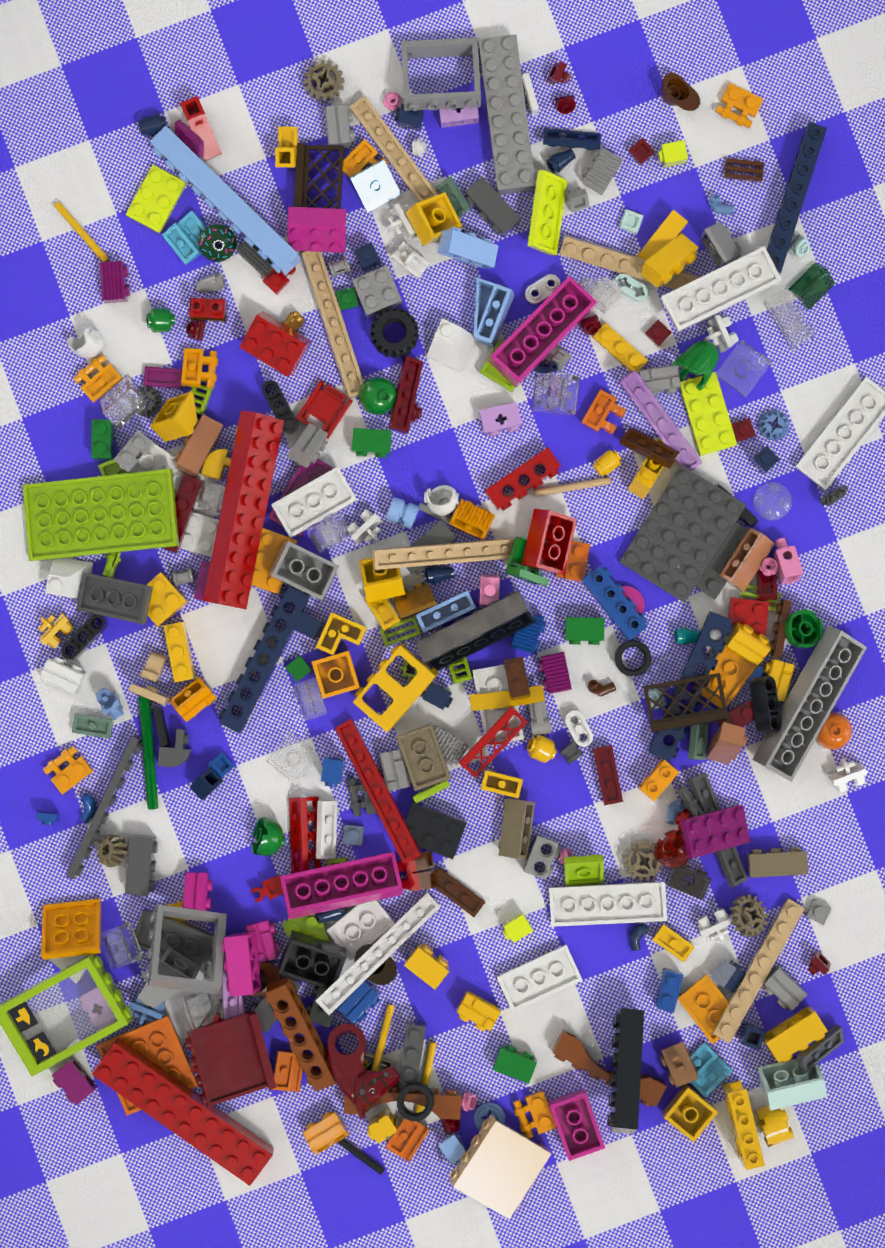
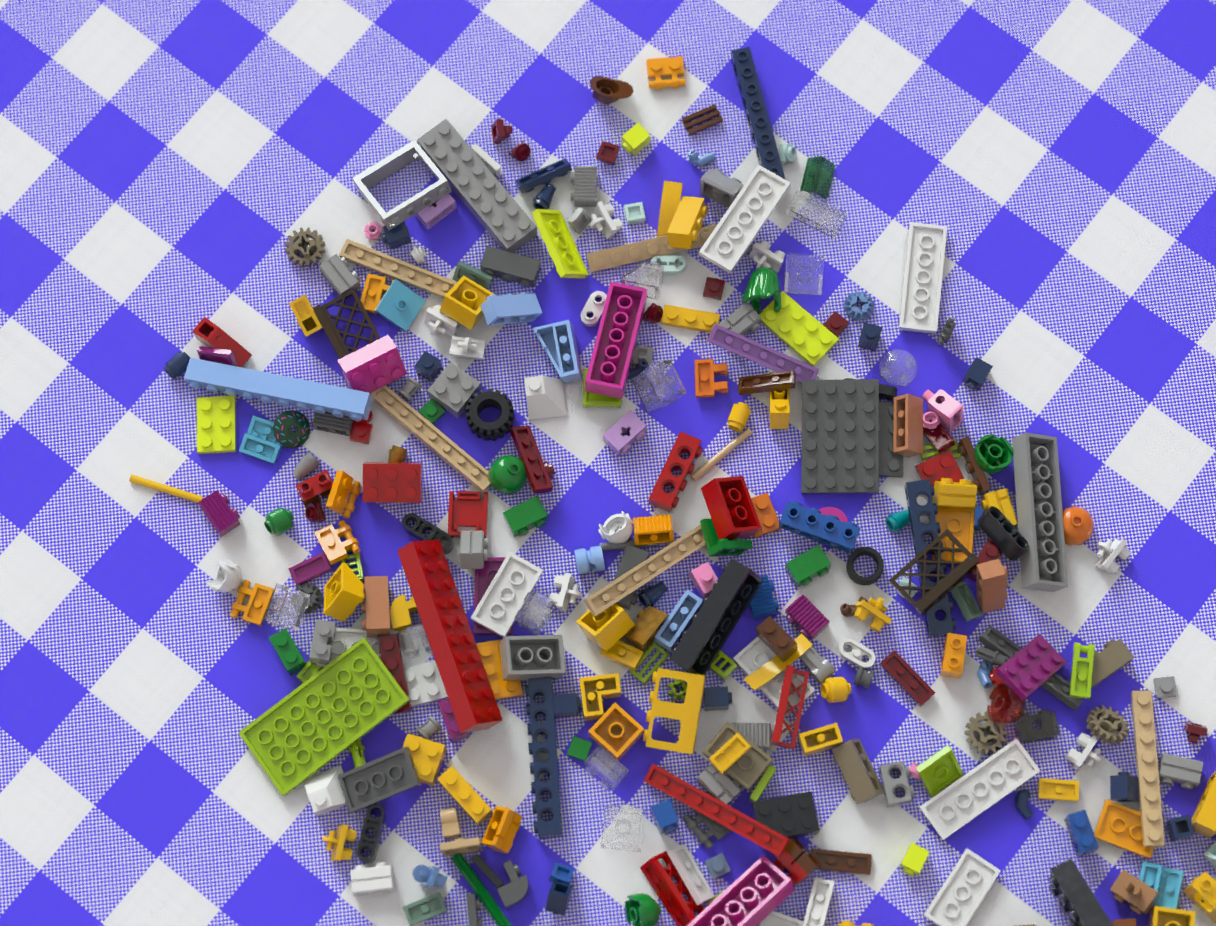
camera: 30 degrees left, 15 degrees down
(224, 326) = (339, 492): none -> light orange plate
(416, 753) = (729, 753): none -> yellow plate
(597, 213) = (603, 221): none -> white hips
(607, 697) = (865, 609): none -> yellow hips
(755, 860) = (1081, 671): none -> lime plate
(836, 549) = (977, 374): none -> dark blue brick

